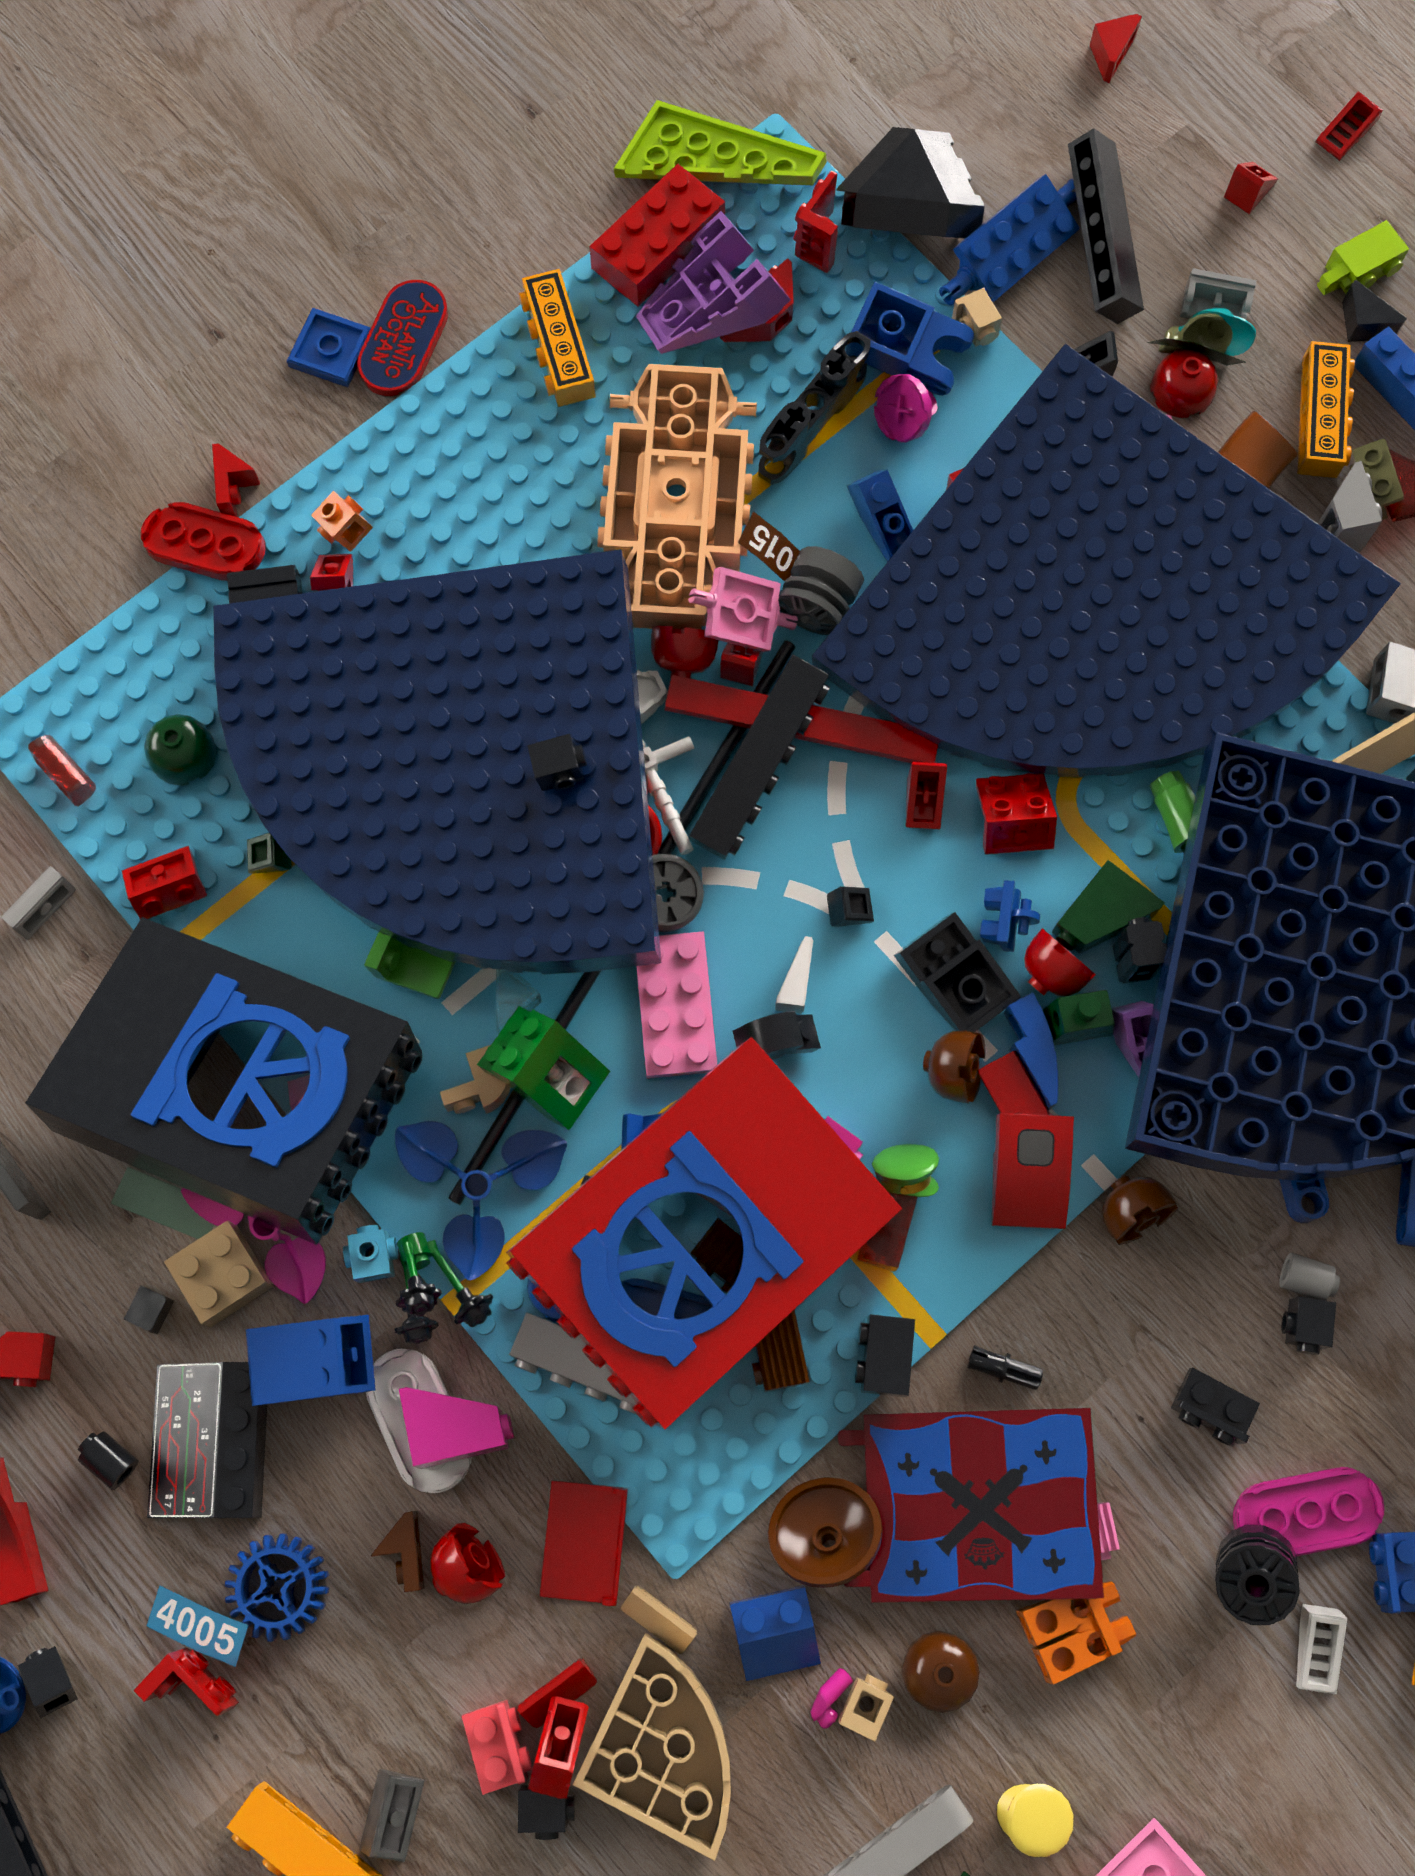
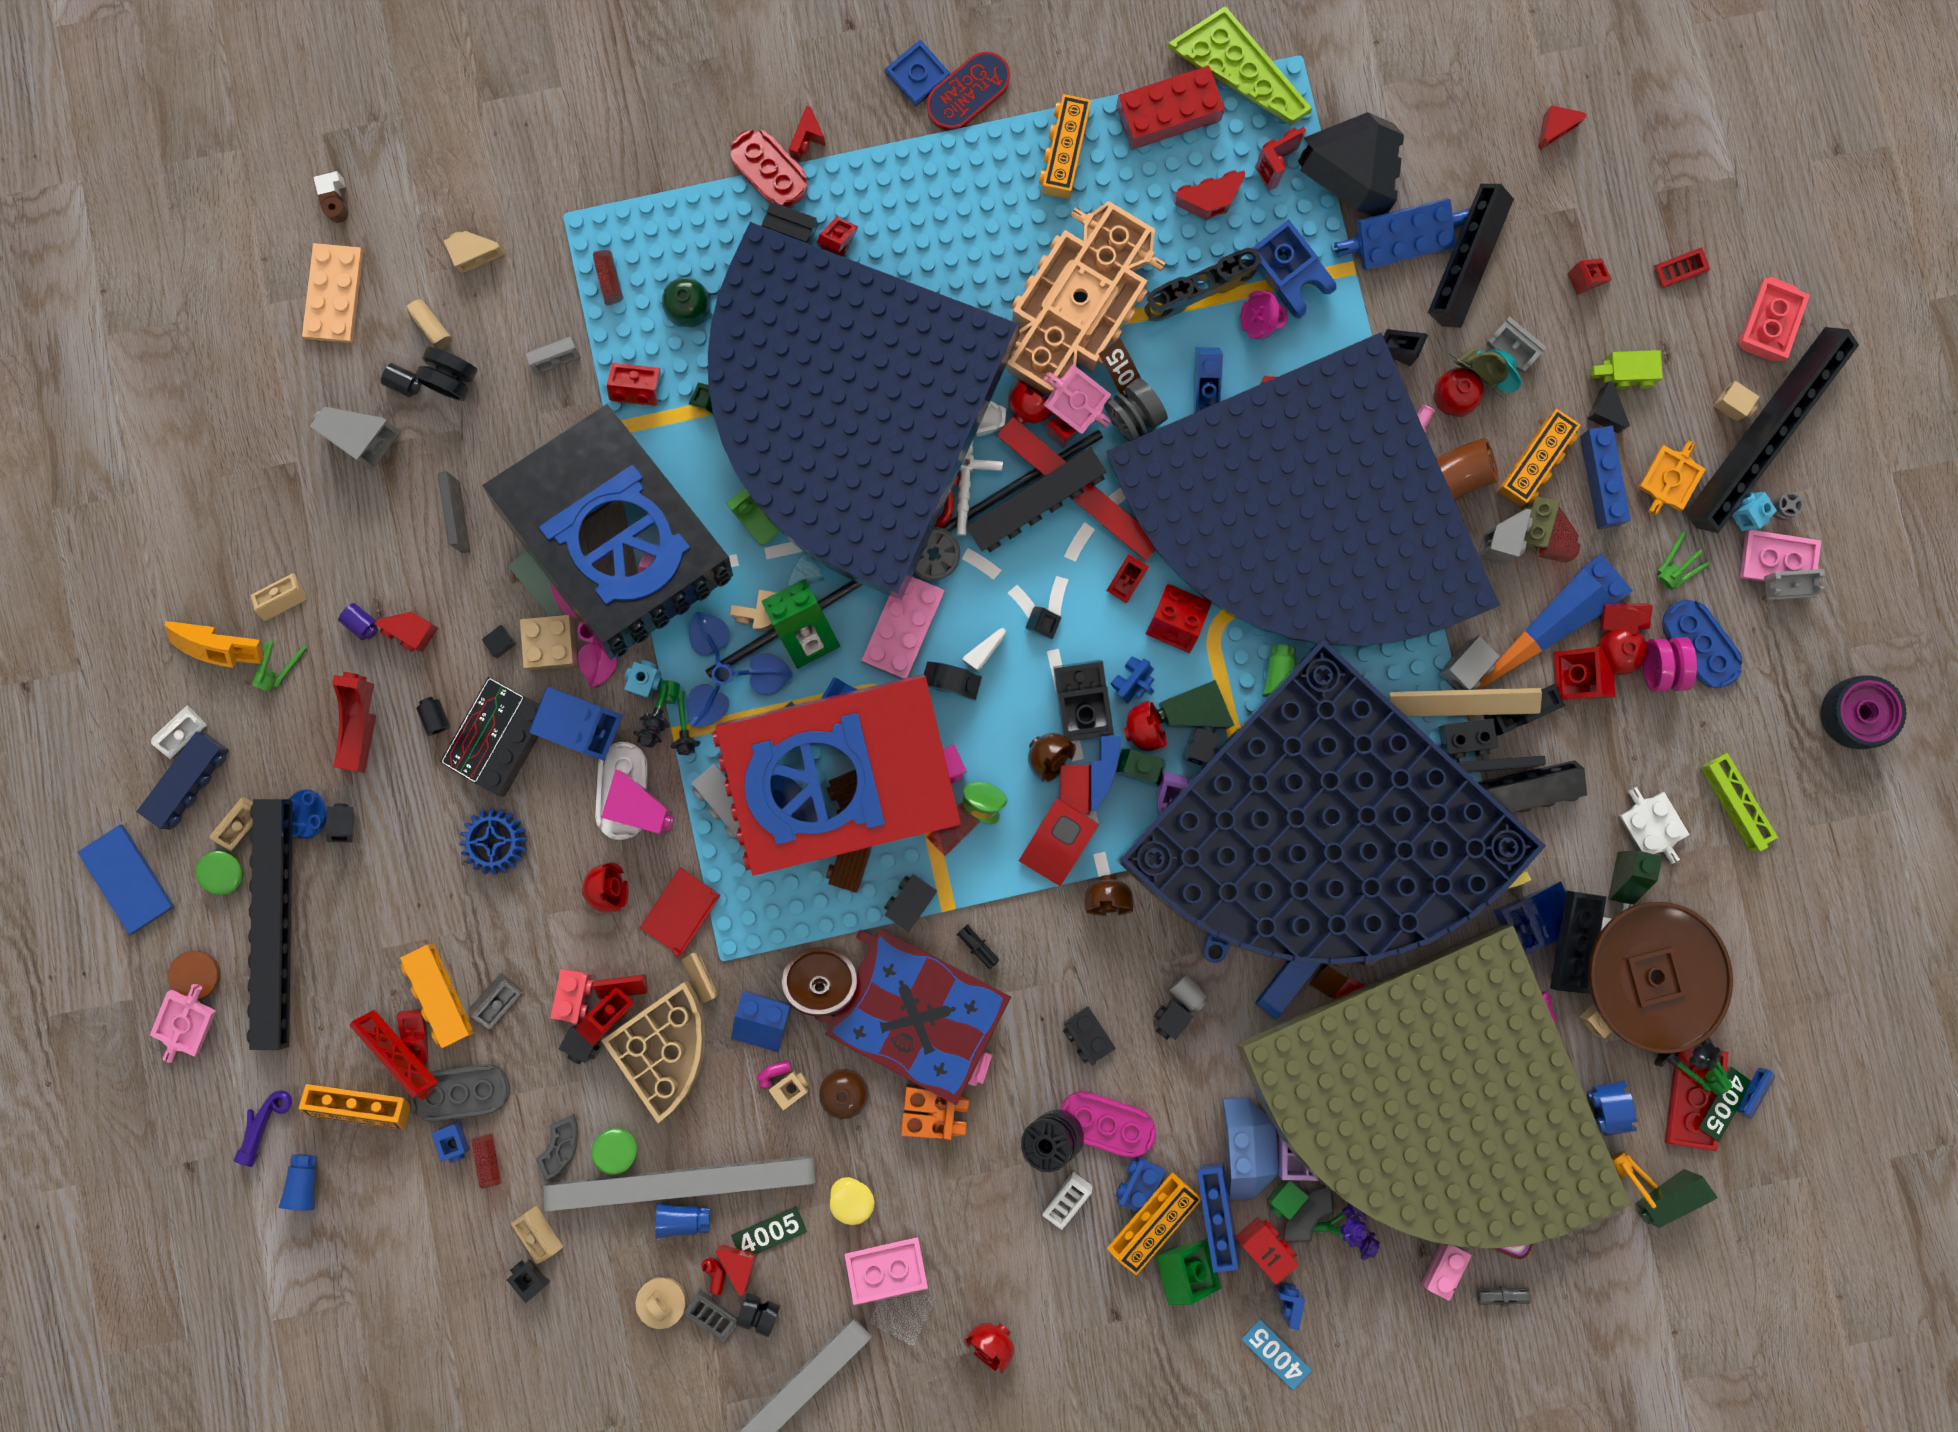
camera: 25 degrees right, 10 degrees up
(188, 1668) = (422, 861): red bracket -> none
(197, 1626) = (437, 839): dark azure sticker -> none
(336, 516) = (861, 203): orange brick -> none
(405, 1539) = (579, 855): reddish brown slope -> none
(557, 762) = (901, 444): black brick -> none
(703, 296) = (1174, 168): medium lavender wedge -> none
(980, 315) = (1347, 276): tan brick -> none

